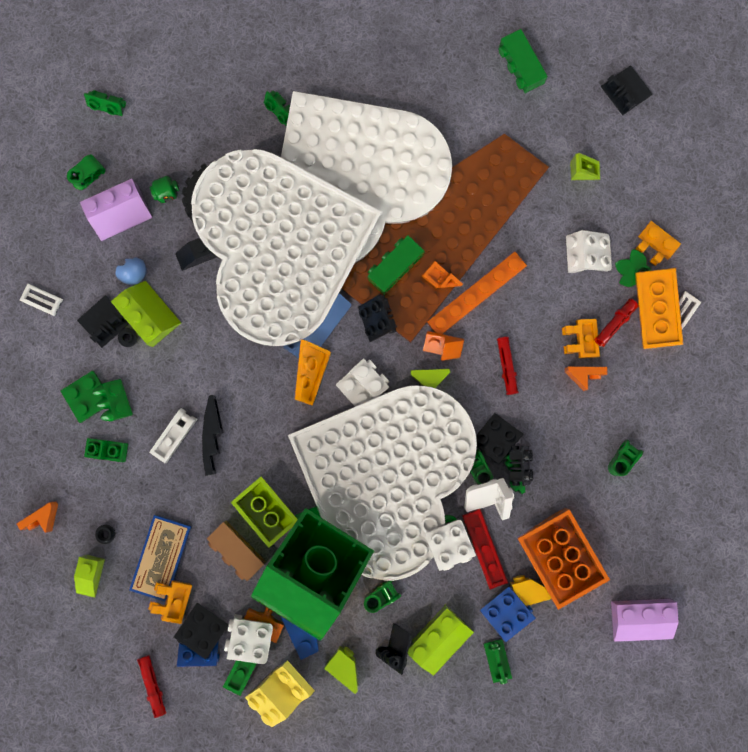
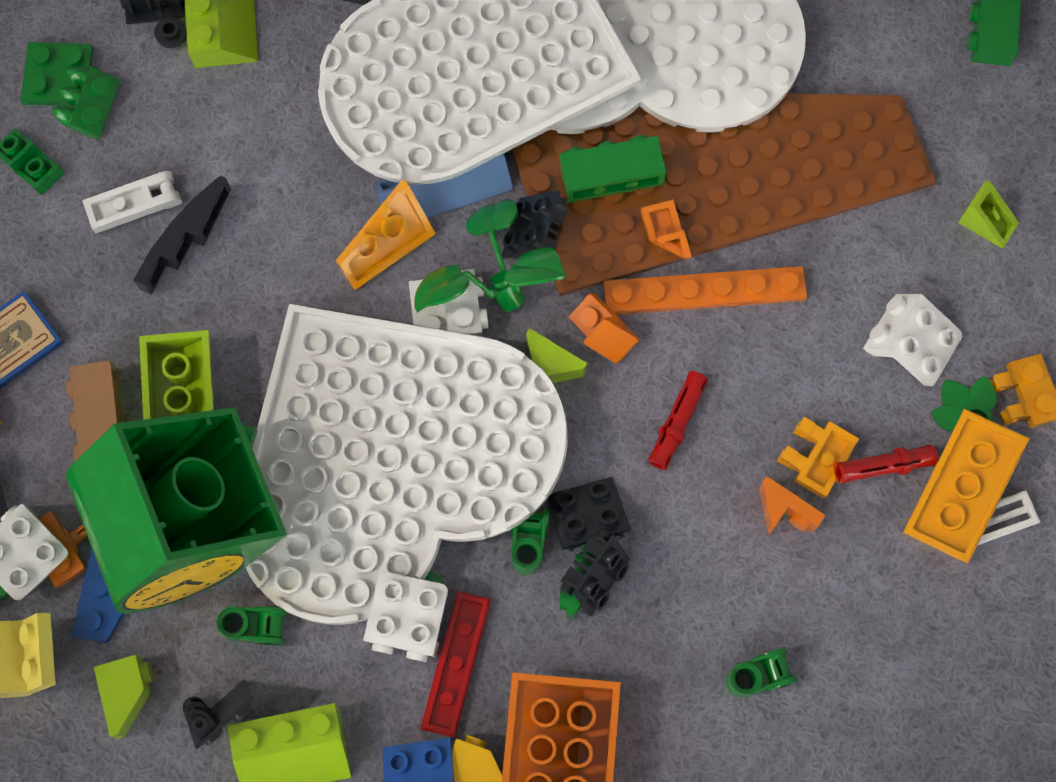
camera: 30 degrees right, 10 degrees down
(398, 343) = (531, 268): none -> green plant
(488, 494) = (514, 582): white bracket -> none

